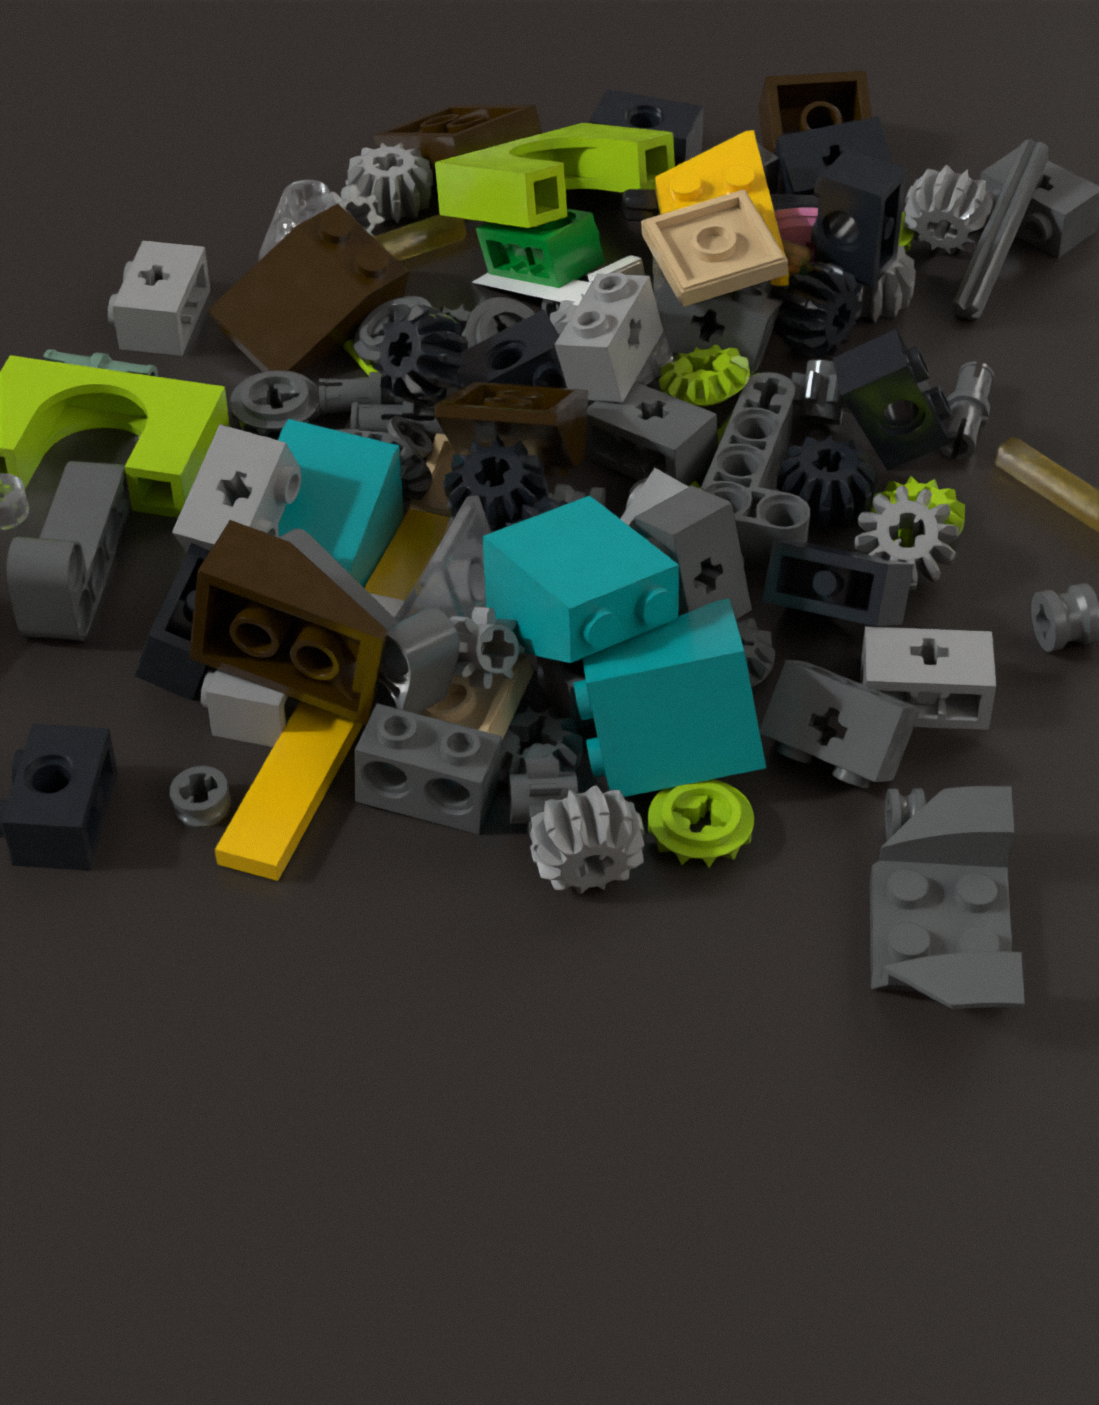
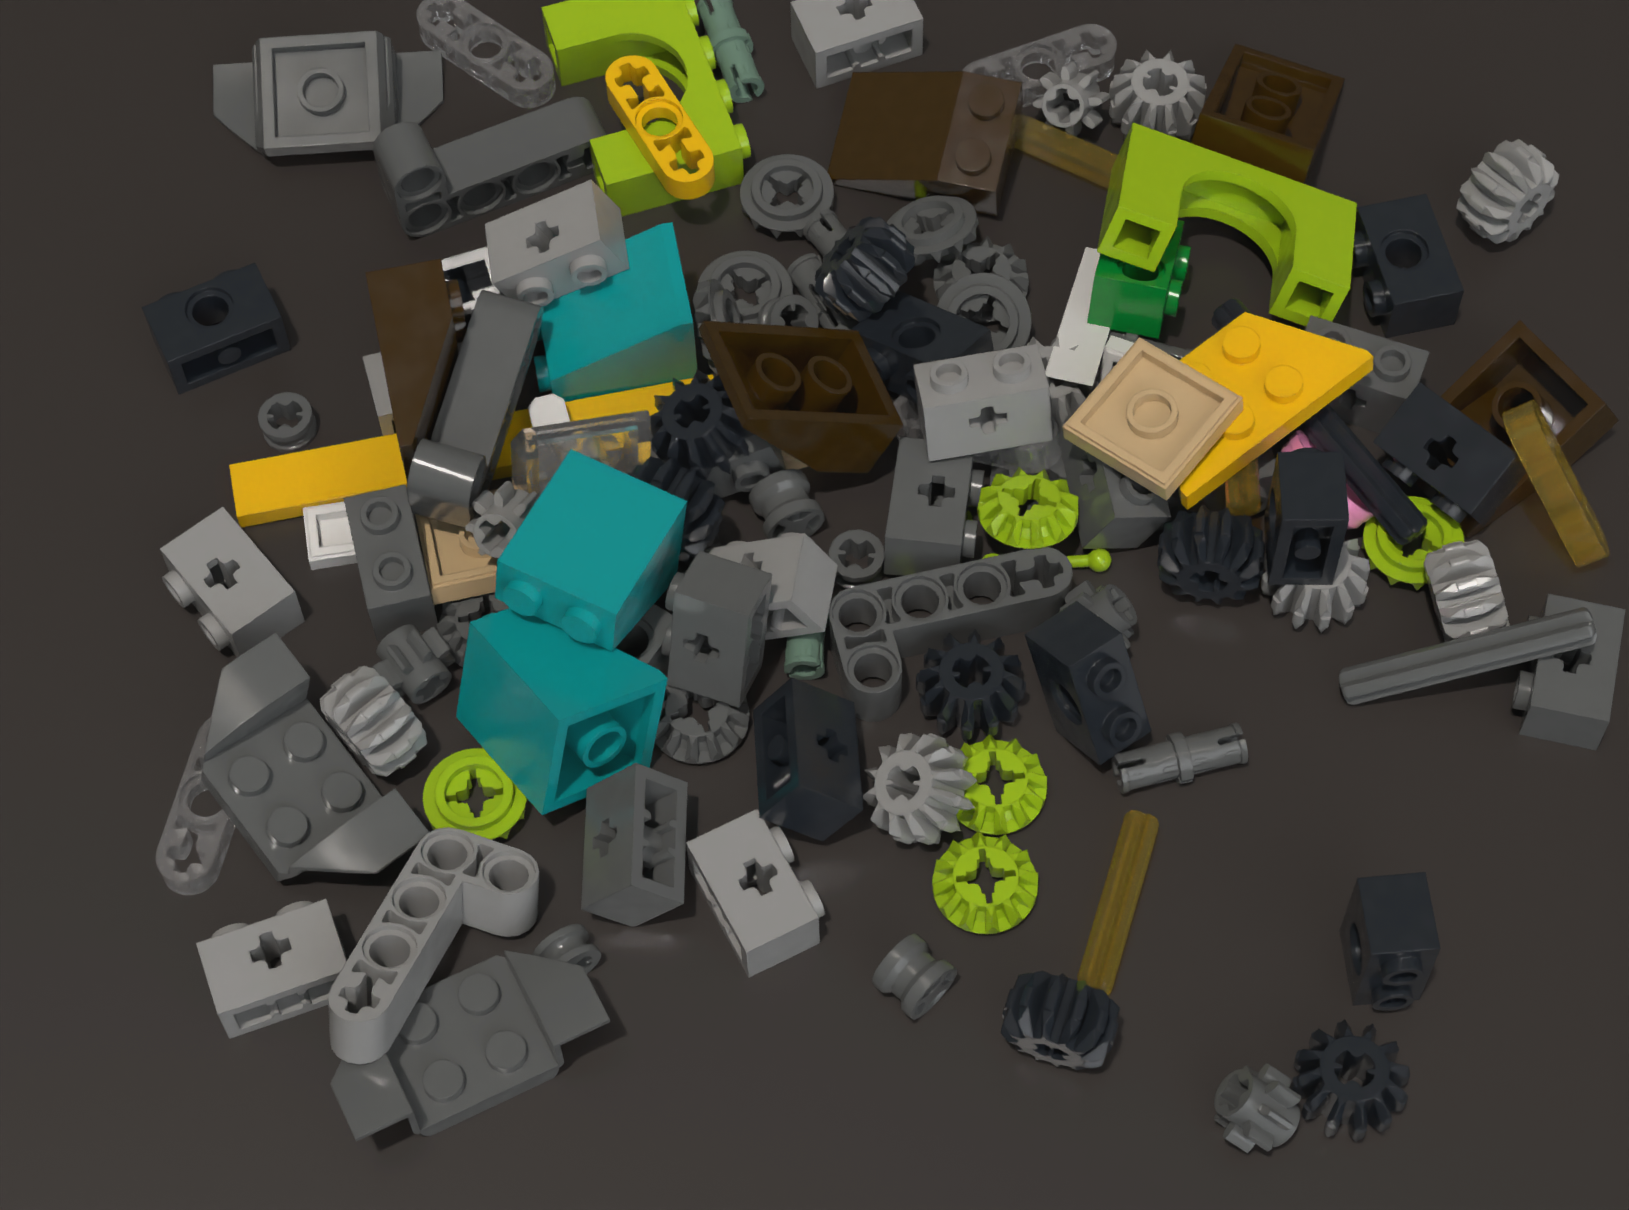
camera: 60 degrees right, 15 degrees up
(108, 410) = (660, 150): none -> yellow beam
(343, 819) = (328, 536): none -> white tile
(351, 894) = (219, 557): none -> light grey brick
(570, 1041) = (213, 831): none -> clear beam
(616, 931) = (292, 779): none -> dark grey piece
(635, 57) = (1507, 191): none -> light grey gear
(783, 1020) = (240, 971): none -> light grey brick
(807, 869) = (444, 884): none -> light grey beam
(904, 128) = (1556, 483): none -> clear yellow beam
(1015, 570) = (964, 902): none -> lime gear

